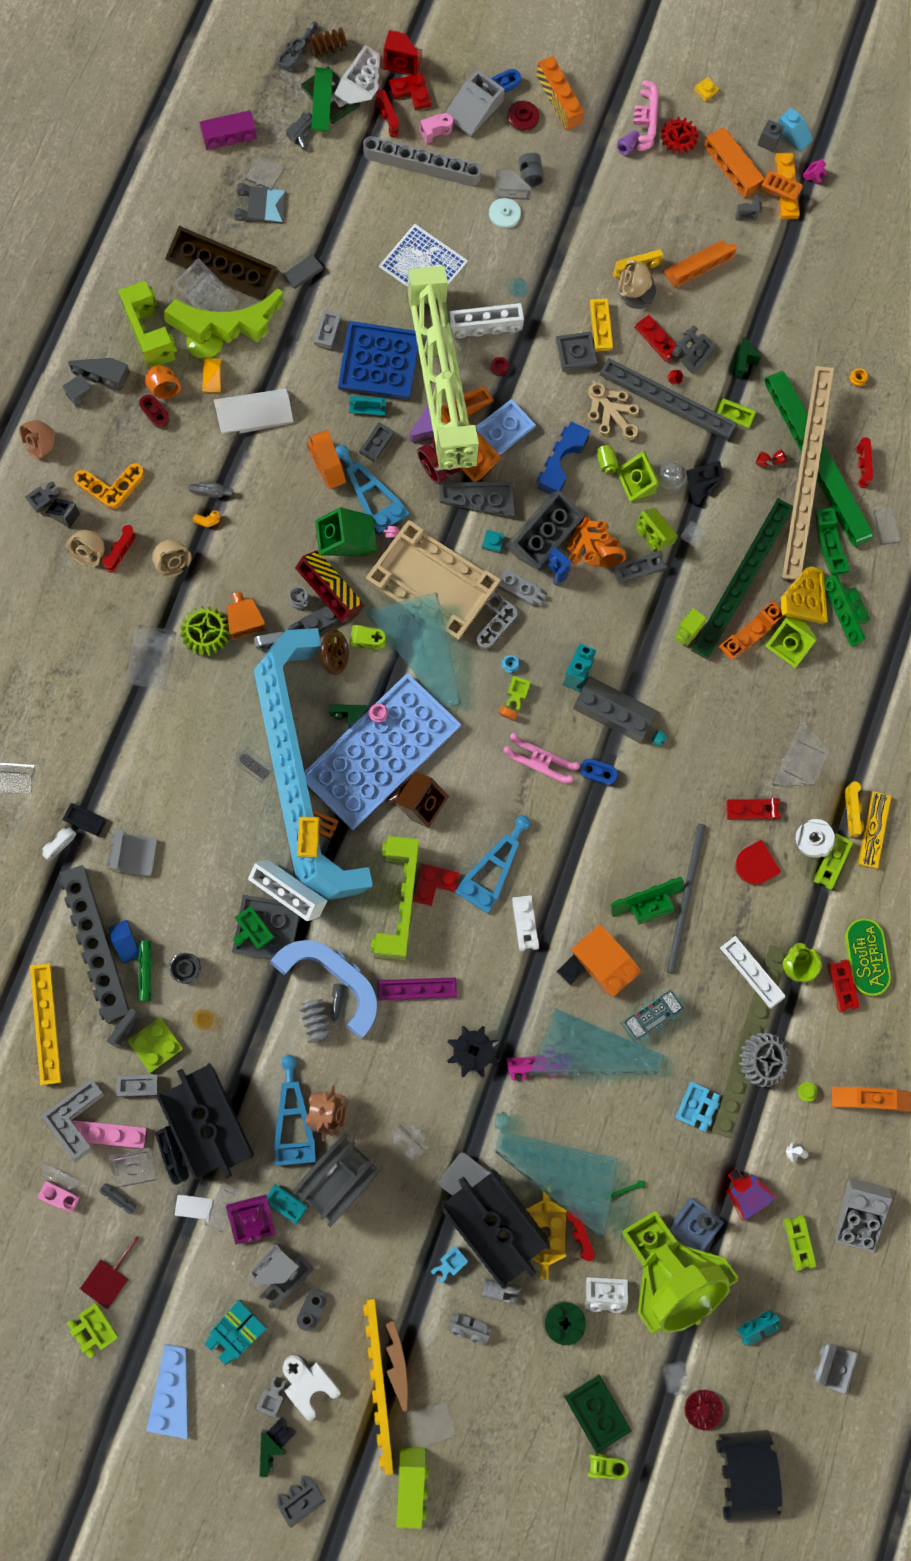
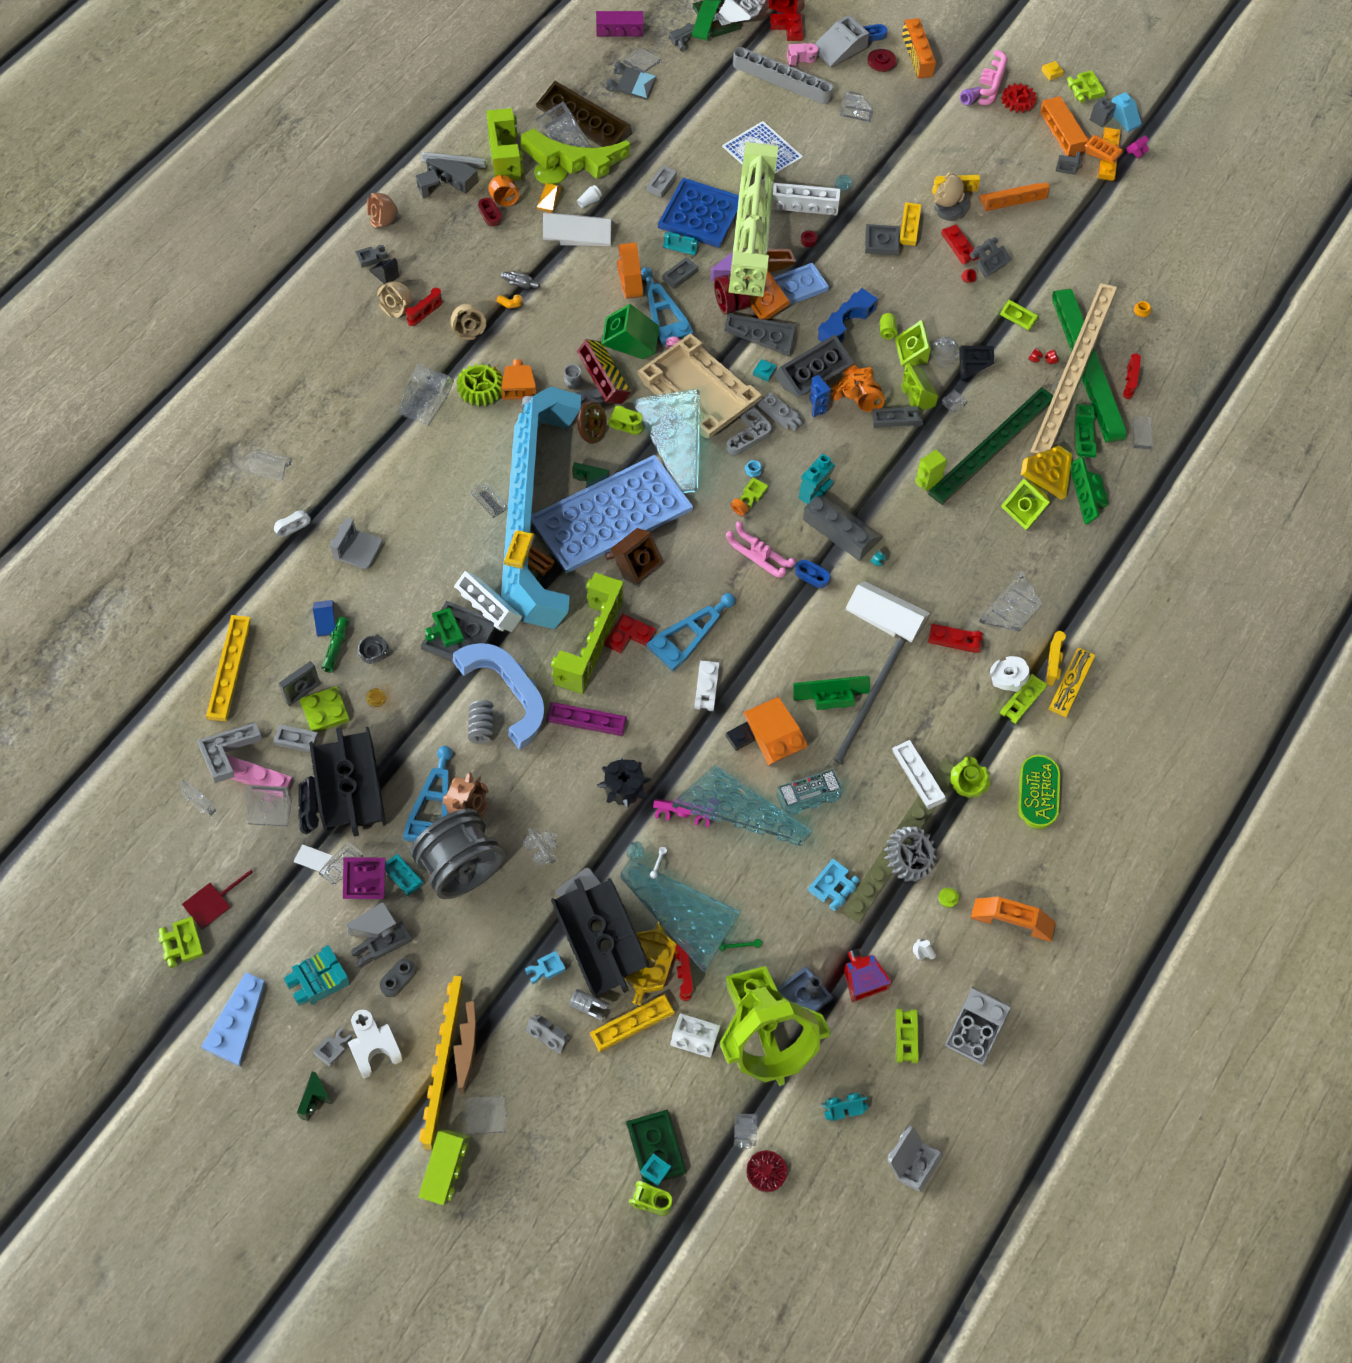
camera: 20 degrees right, 15 degrees down
(58, 1196) = (189, 815): bright pink leg -> none
(79, 876) = (295, 553): dark grey brick -> none
(84, 819) = (322, 511): black tile -> none
(96, 351) = (471, 161): none -> light grey axle
(109, 492) = (431, 267): light orange beam -> none
(117, 1198) = (244, 832): dark grey axle -> none
(256, 367) = (590, 196): none -> white cone
(281, 1432) = (332, 1080): black wheel -> none
(300, 1502) = (330, 1152): dark grey plate -> none
(303, 271) = (653, 136): dark grey tile -> none
(337, 995) = (508, 708): dark grey piece -> none
(378, 713) = (617, 478): bright pink plate -> none
(387, 112) = (761, 35): red plate -> none
(504, 213) = (845, 127): light aqua piece -> none
(527, 1112) = (662, 851): none -> white hinge
(531, 169) = (878, 97): dark grey wheel -> none
(544, 1297) = (632, 1023): none -> yellow tile
(571, 1333) = (645, 1036): dark green brick -> none
(605, 1440) = (655, 1170): none -> teal plate
(611, 409) = (894, 276): tan plant -> none
(667, 399) = (958, 292): dark grey plate -> none
(682, 796) = (887, 611): none -> white slope
(746, 355) = (1039, 272): dark green slope -> none
(751, 102) = (1090, 85): none -> lime plate
(751, 1476) = (796, 1250): black cylinder -> none
(753, 631) = (992, 491): orange slope -> none
(756, 864) = (946, 686): red tile -> none
(843, 985) = (1008, 810): red plate -> none

